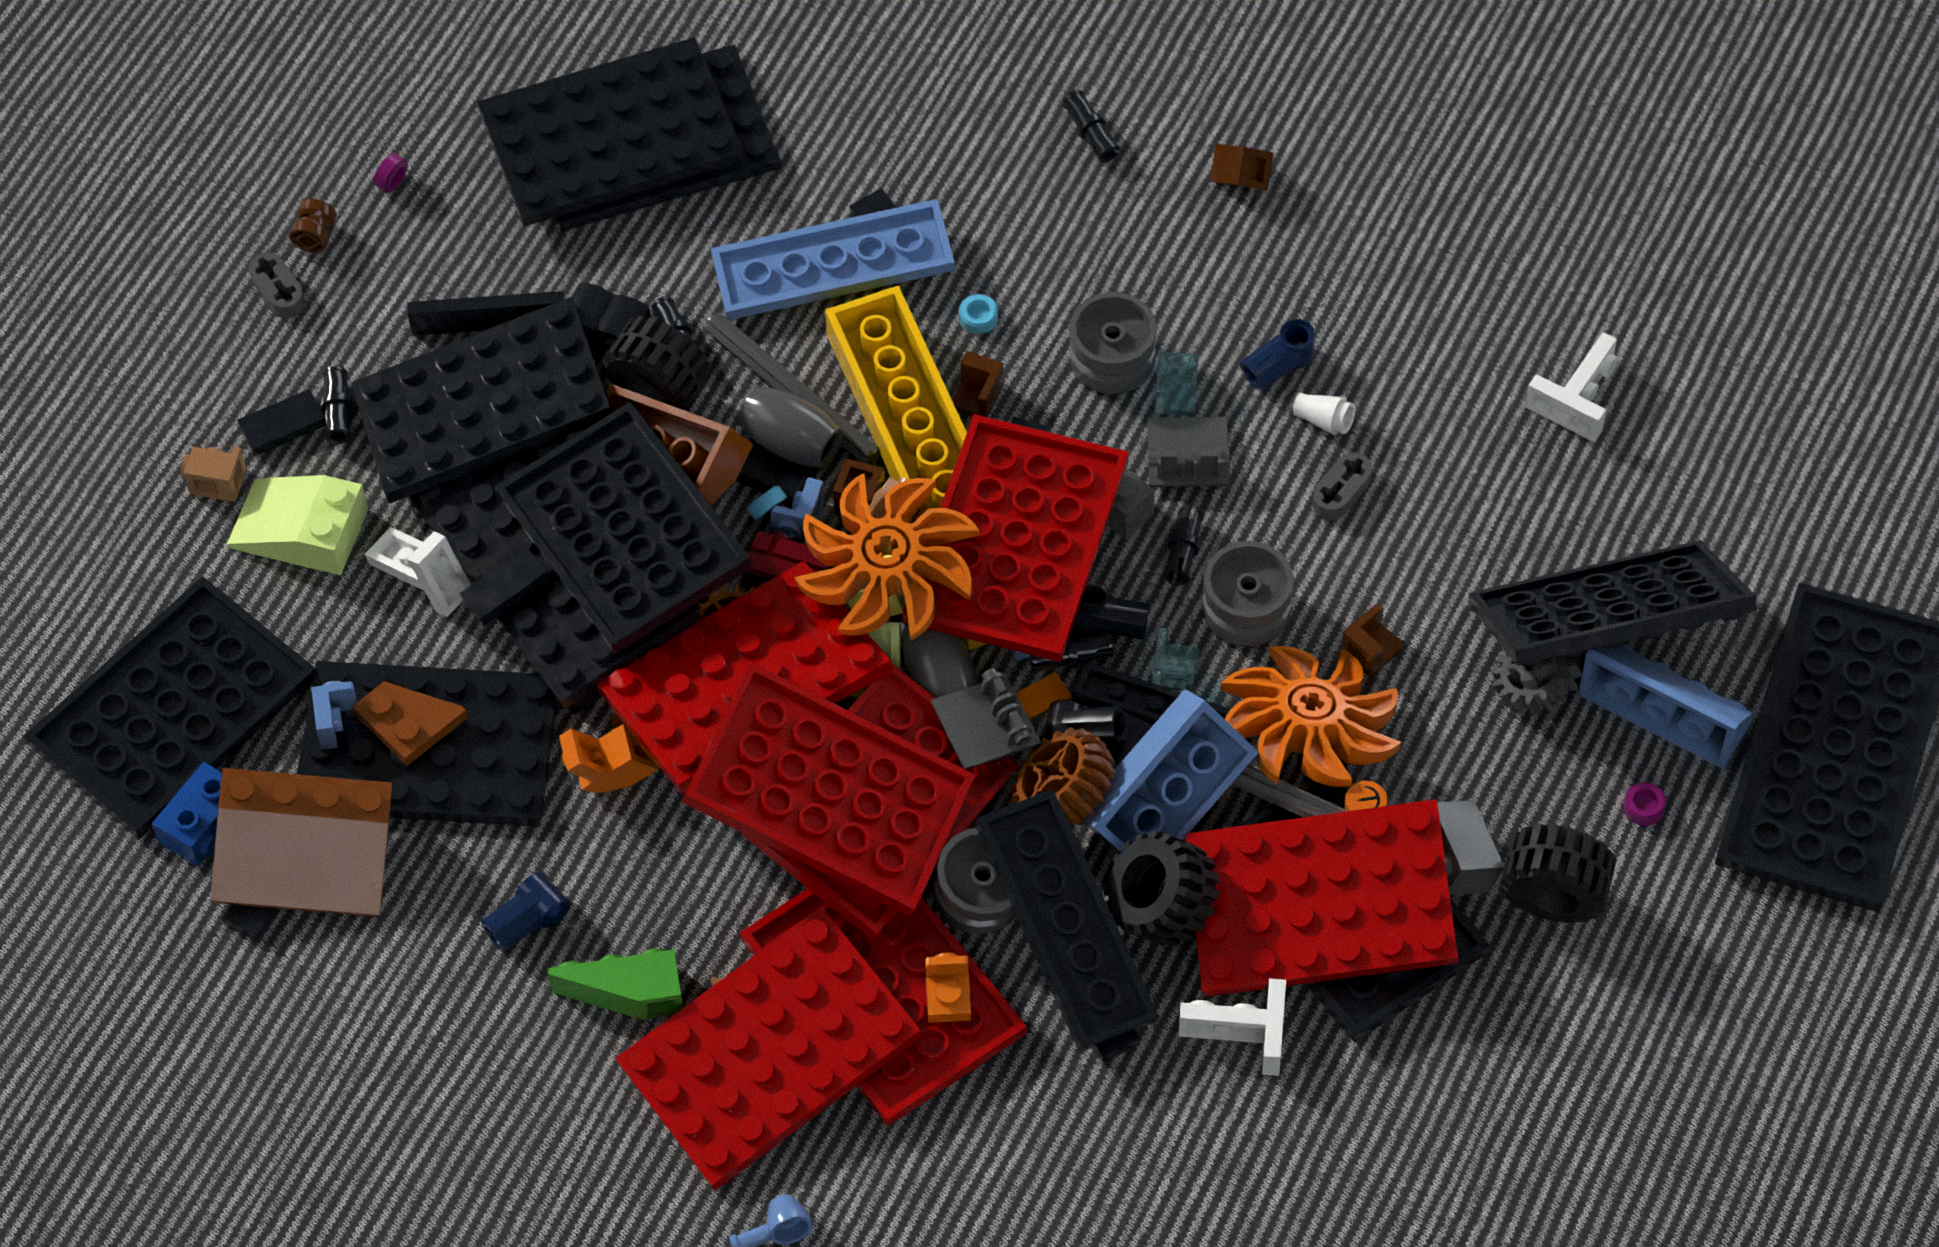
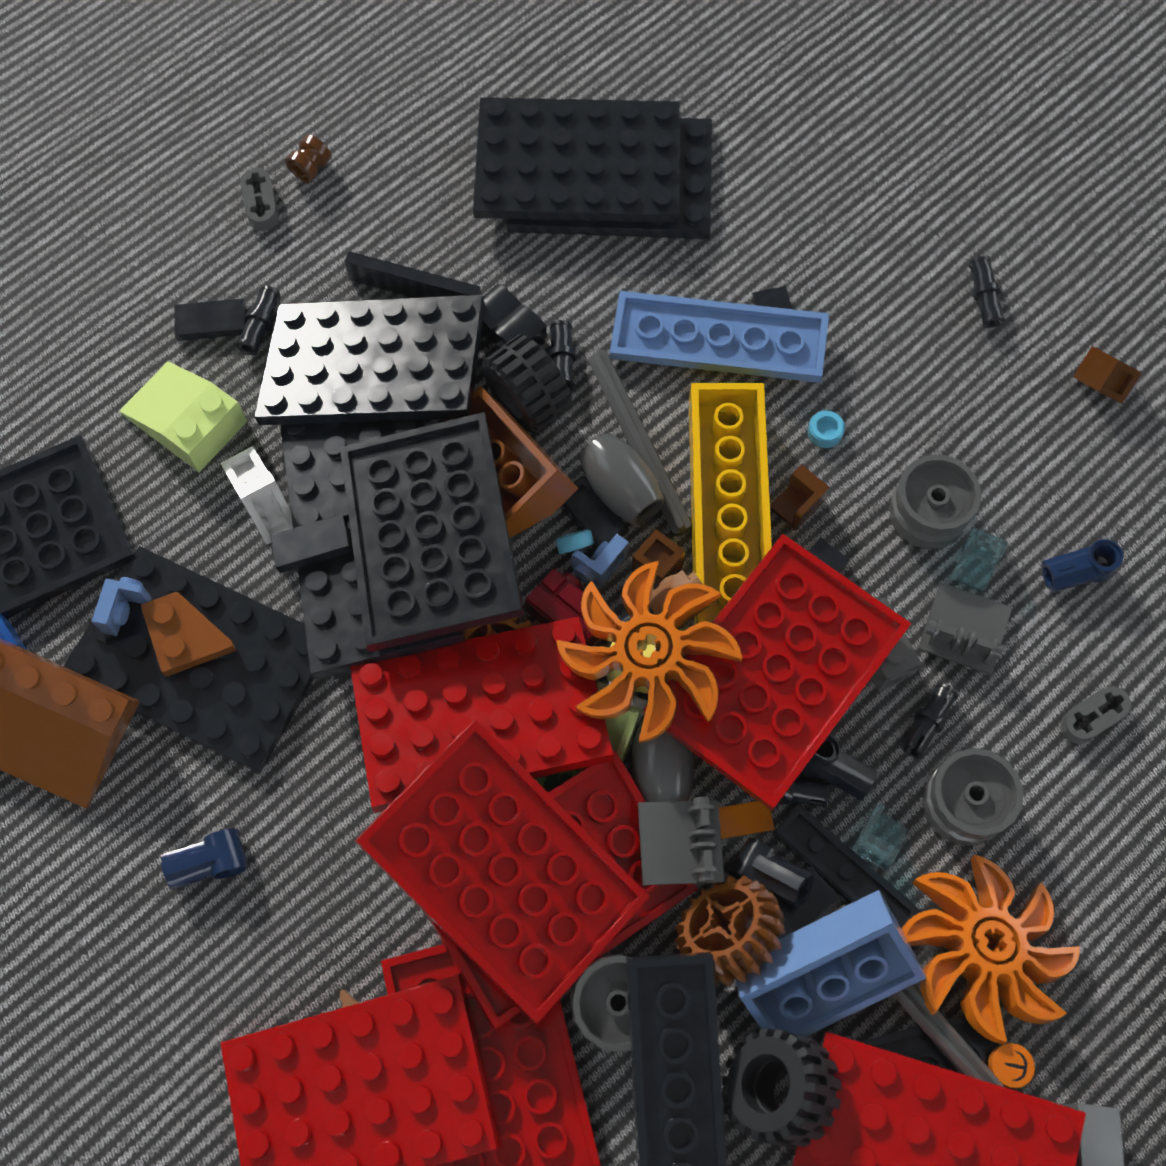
camera: 20 degrees right, 10 degrees up
(214, 472) = (134, 344): medium nougat brick -> none
(390, 172) = (389, 135): magenta tile -> none
(606, 762) = (327, 736): orange brick -> none
(631, 985) = (266, 976): bright green slope -> none
(948, 988) = (541, 1108): orange bracket -> none
(1327, 412) = (1104, 636): white cone -> none
(1371, 641) = (1071, 888): reddish brown panel -> none

